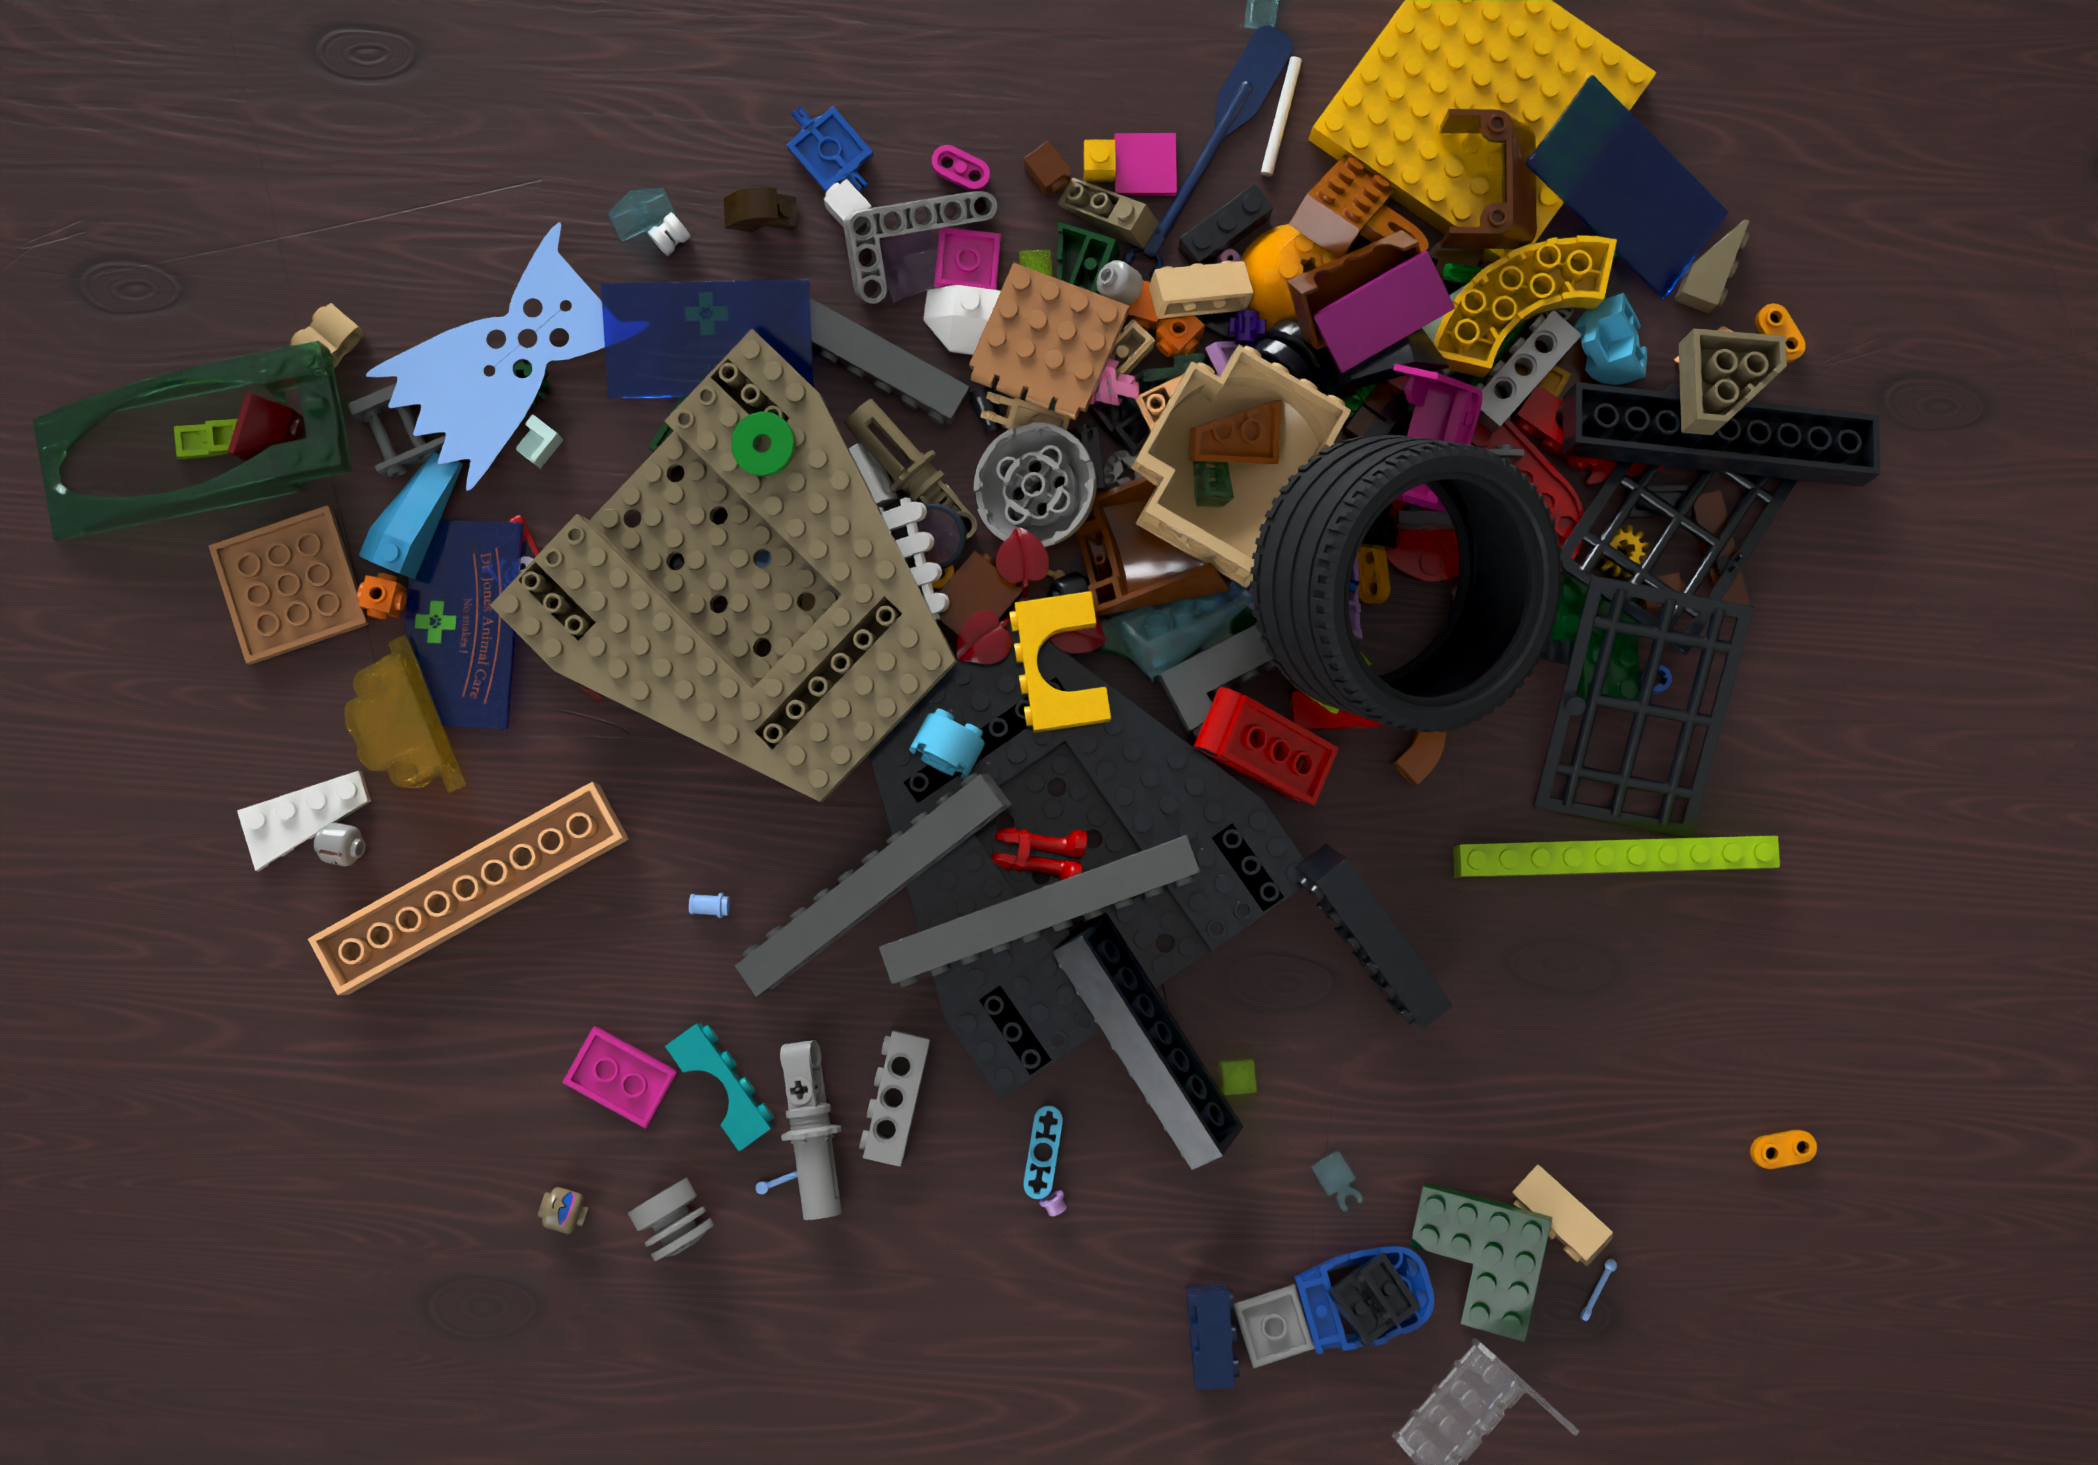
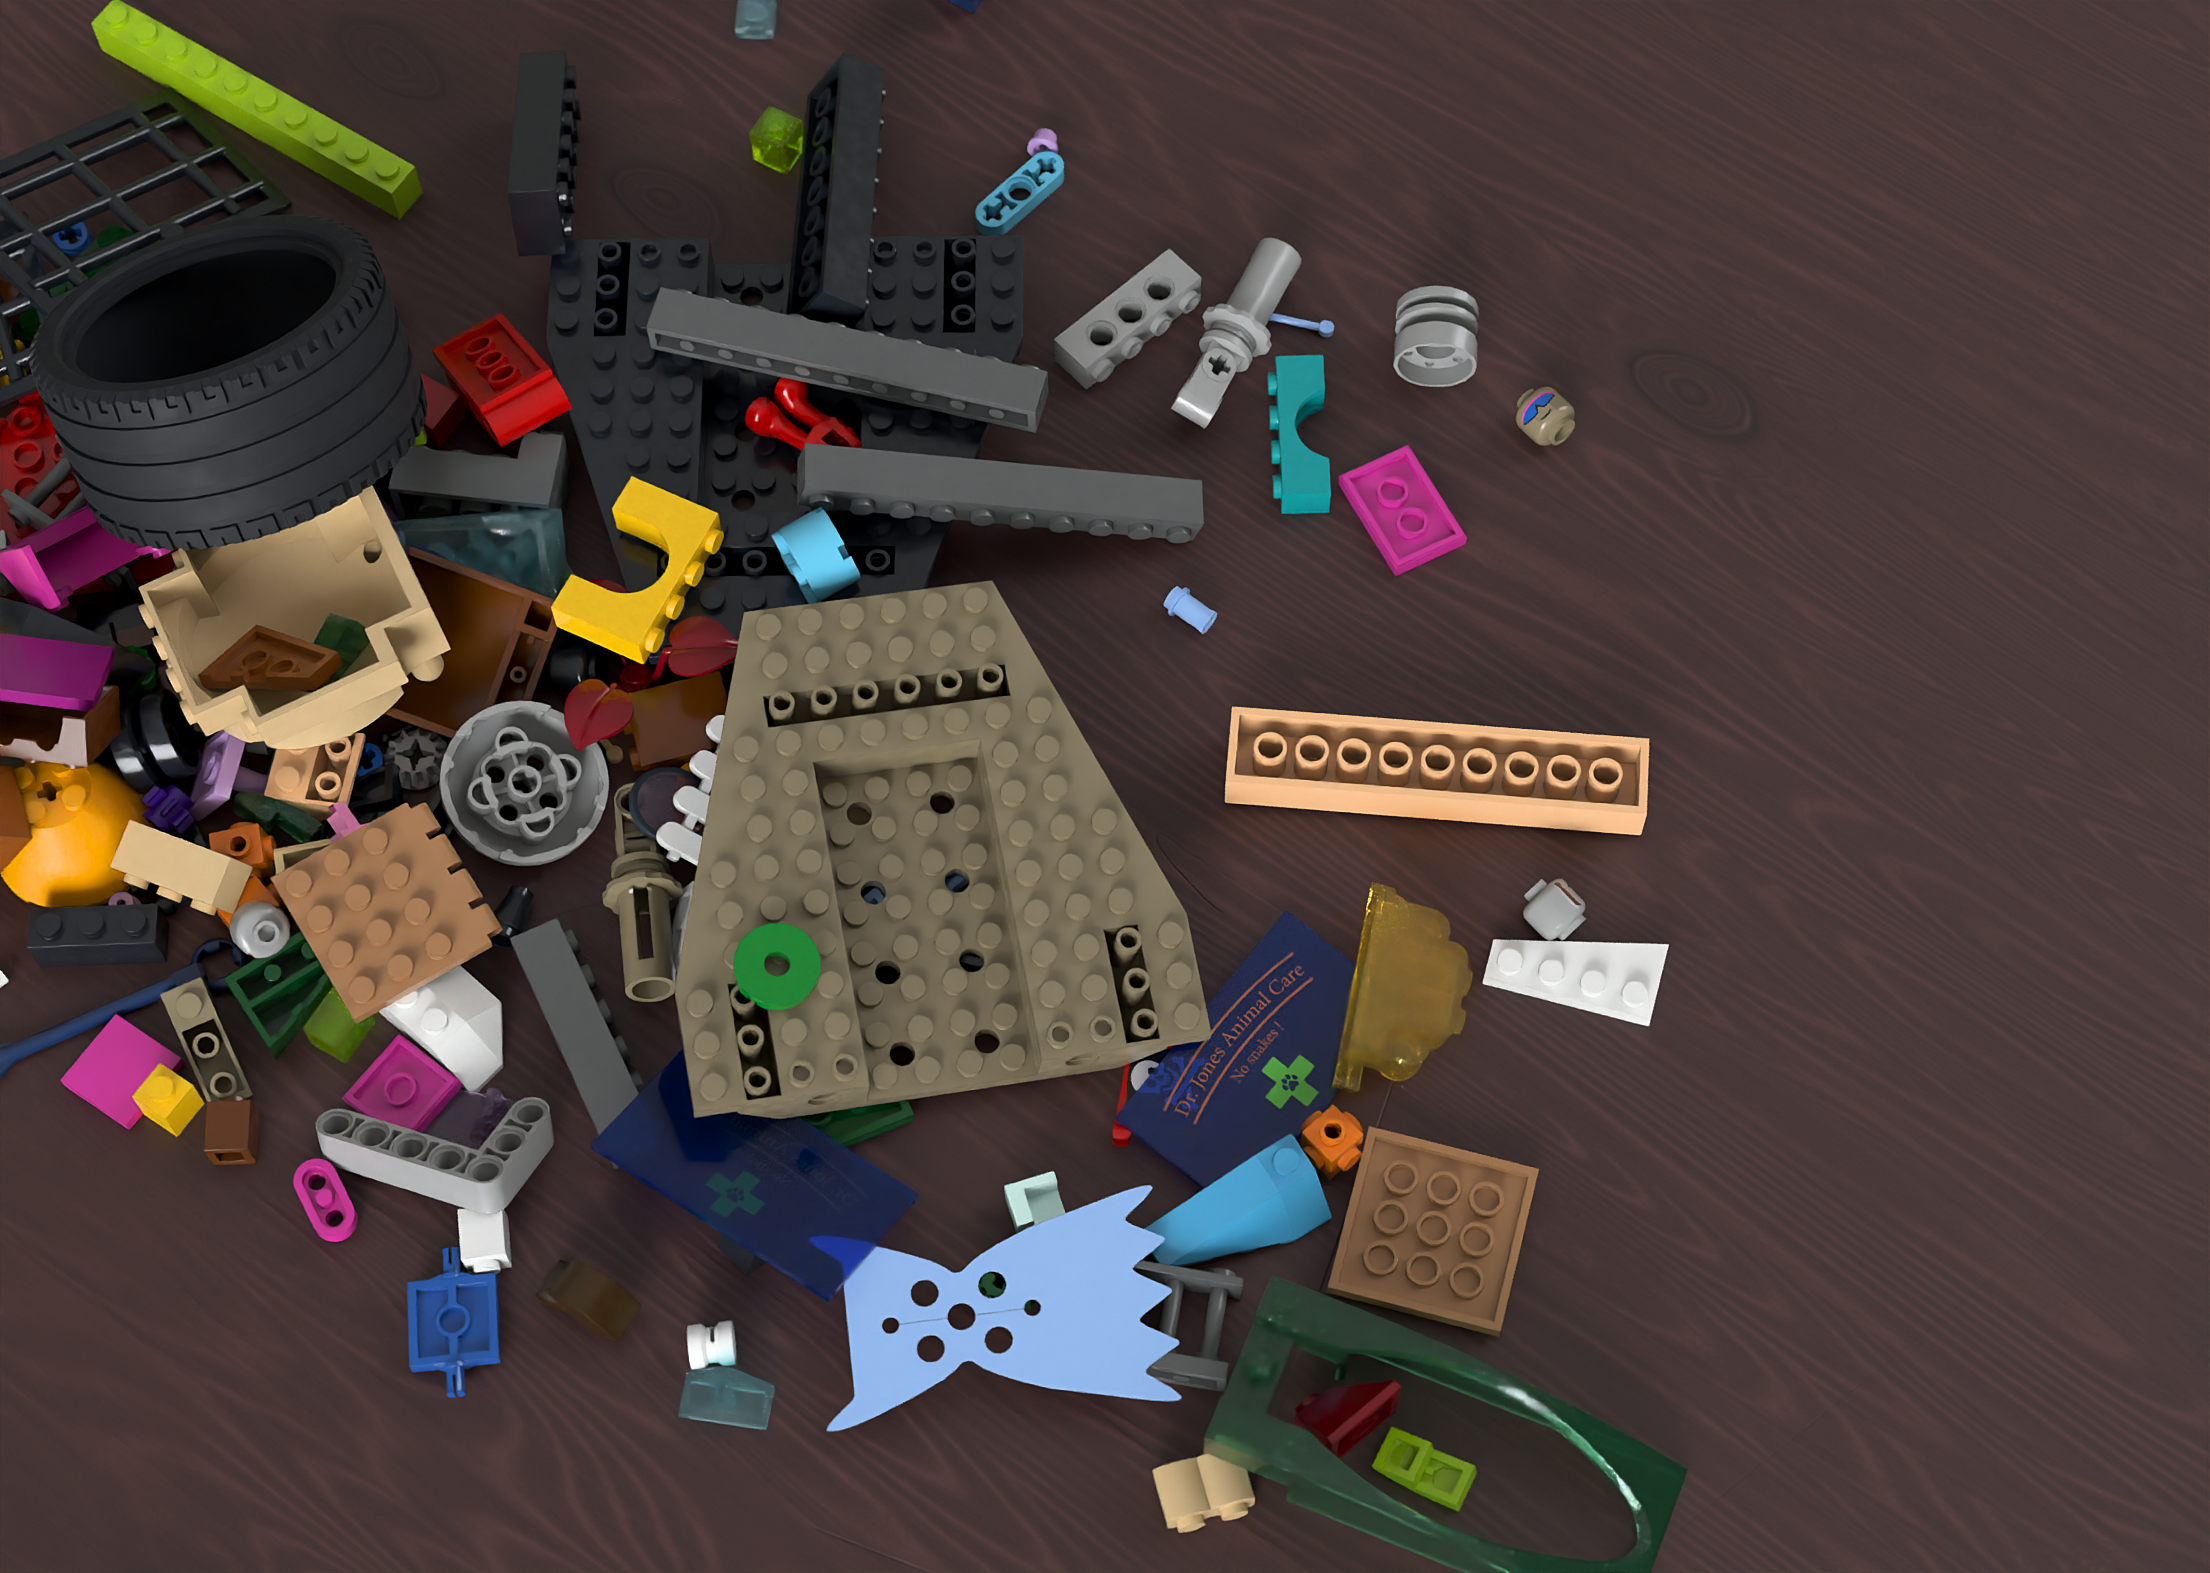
camera: 140 degrees left, 20 degrees down
(1022, 413) = (487, 875): tan hinge -> none

